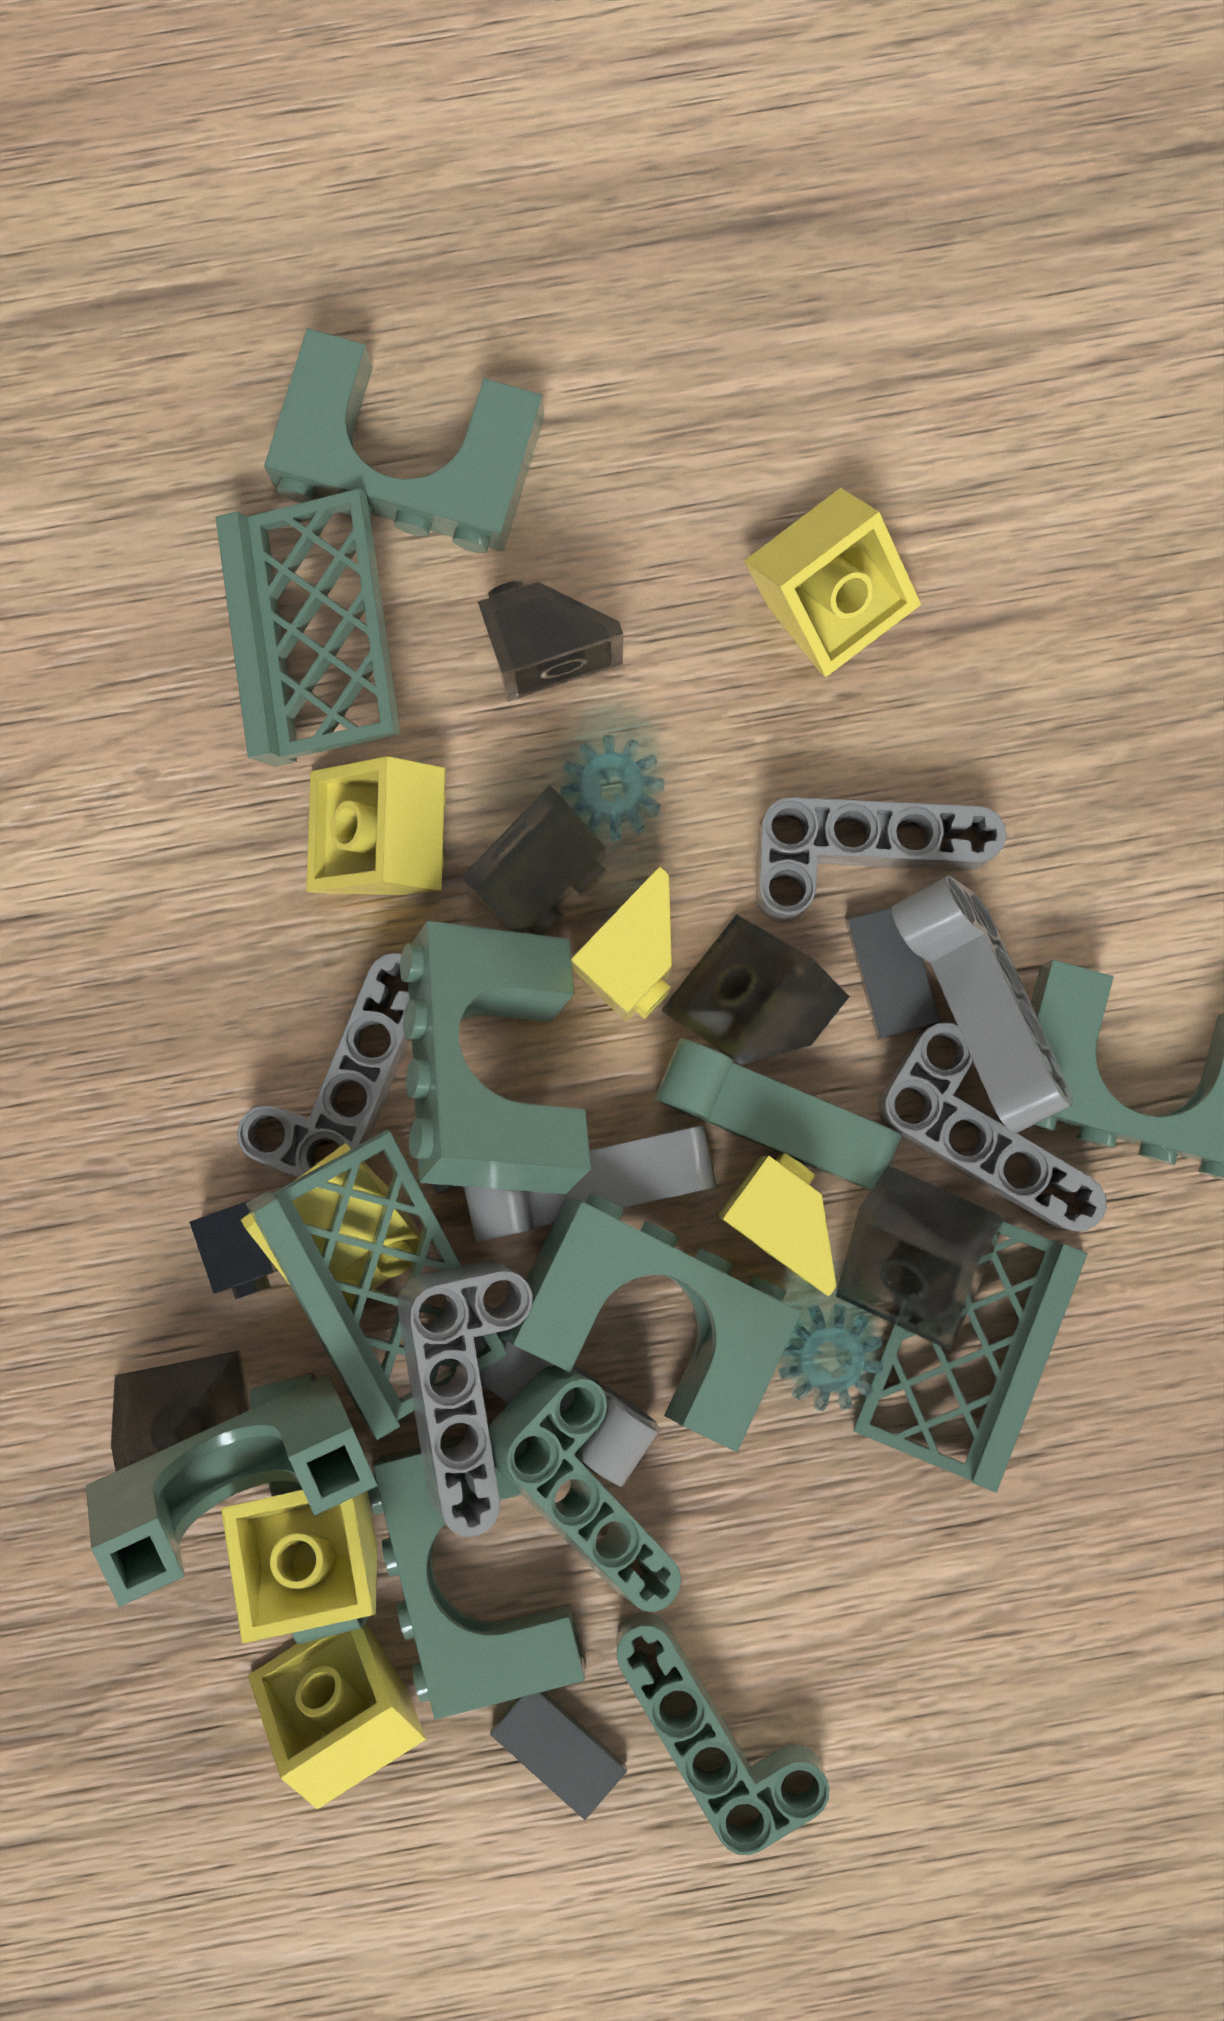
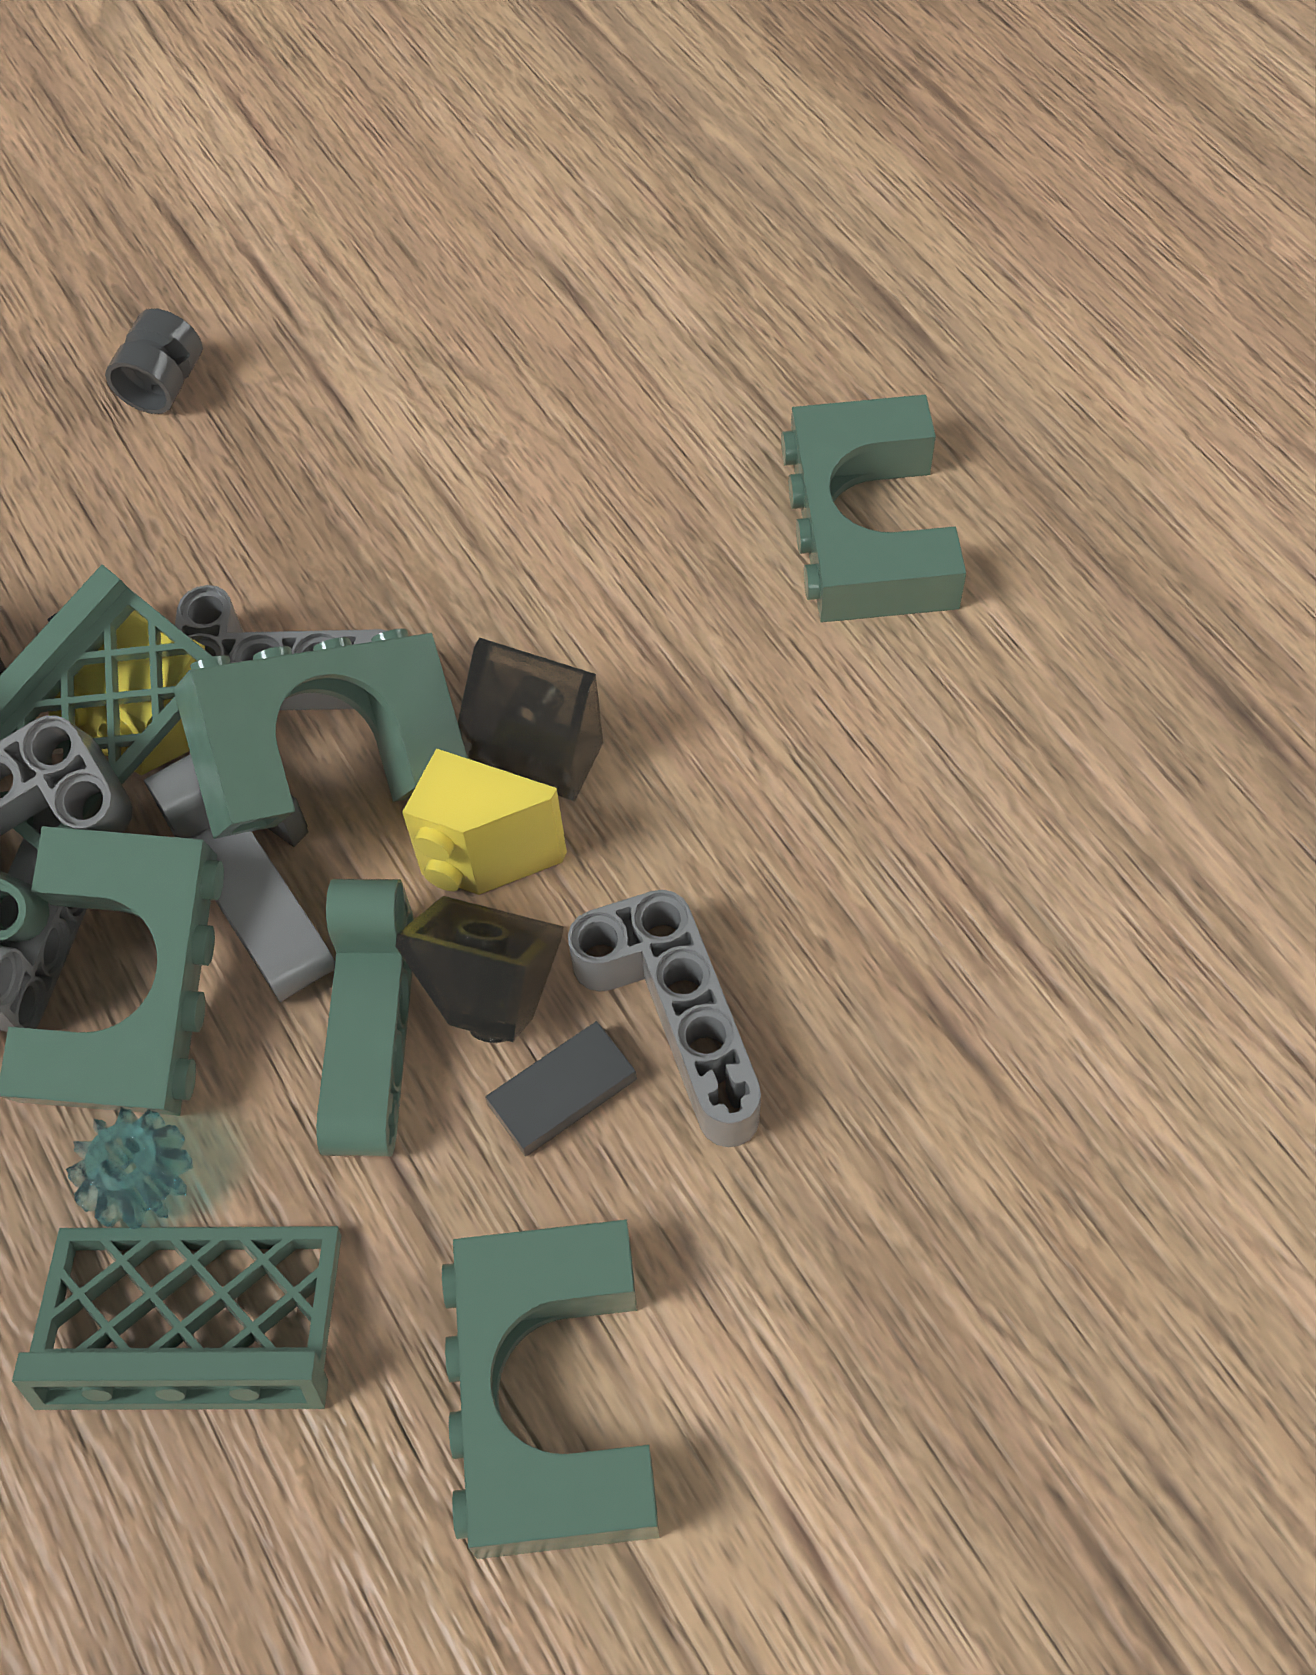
camera: 70 degrees right, 25 degrees down
(258, 637) = (662, 463): sand green fence -> none
(376, 828) = (523, 604): light yellow slope -> none
(546, 637) = (735, 648): clear smoke slope -> none
(635, 786) = (635, 768): clear light blue gear -> none
(784, 1218) = (249, 1056): light yellow slope -> none
(834, 580) = (926, 882): light yellow slope -> none
(918, 1256) = (262, 1208): clear smoke slope -> none
(987, 999) = (557, 1165): light grey beam -> none
(994, 1139) = (414, 1248): light grey beam -> none

